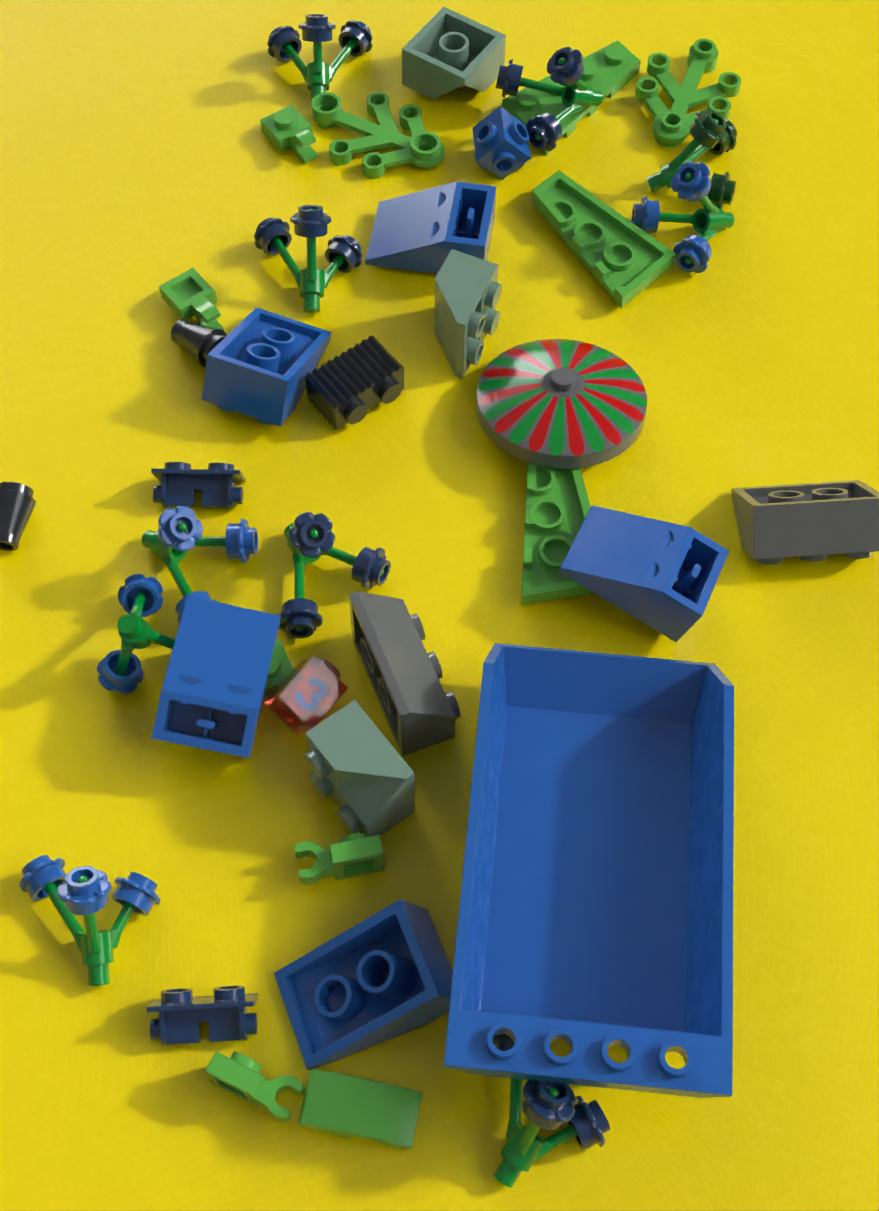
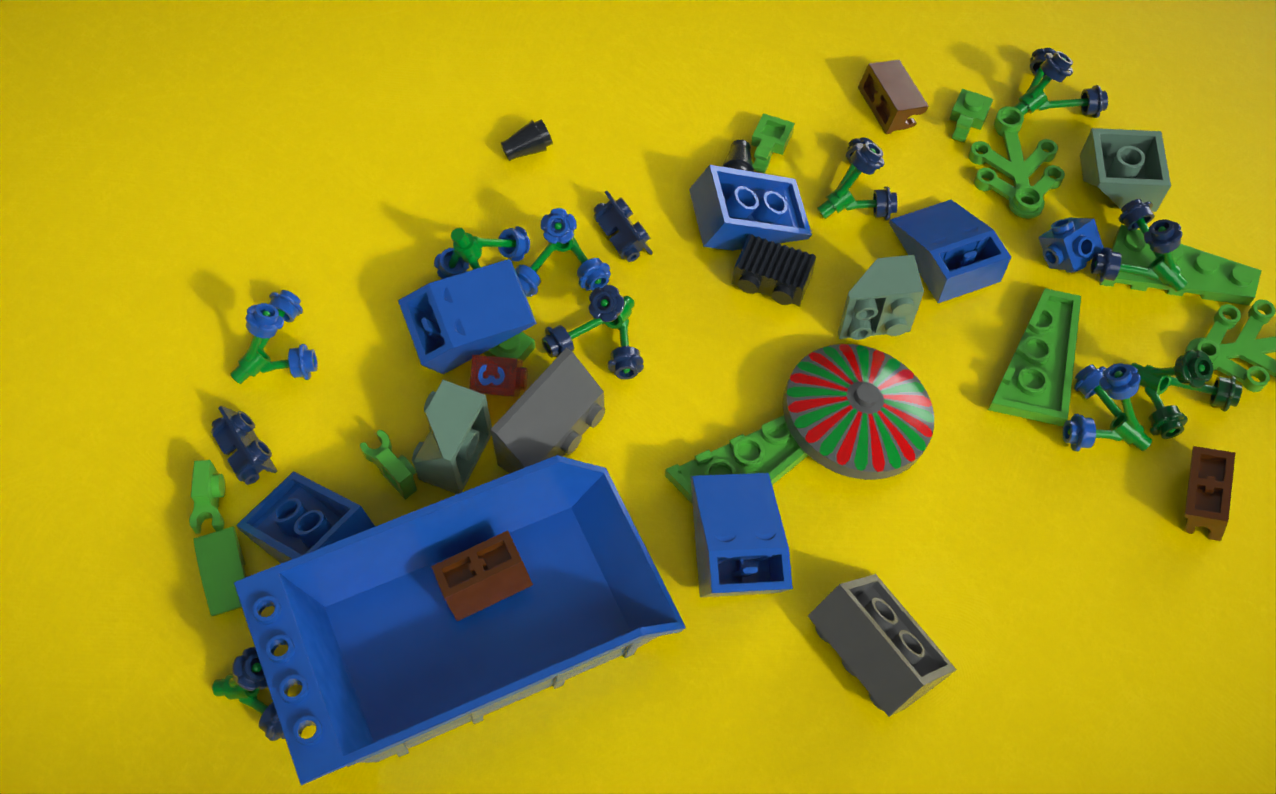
camera: 60 degrees right, 0 degrees up
(223, 175) = (891, 95): none -> reddish brown hinge
(556, 815) = (481, 575): none -> reddish brown hinge
(808, 199) = (1209, 491): none -> reddish brown hinge

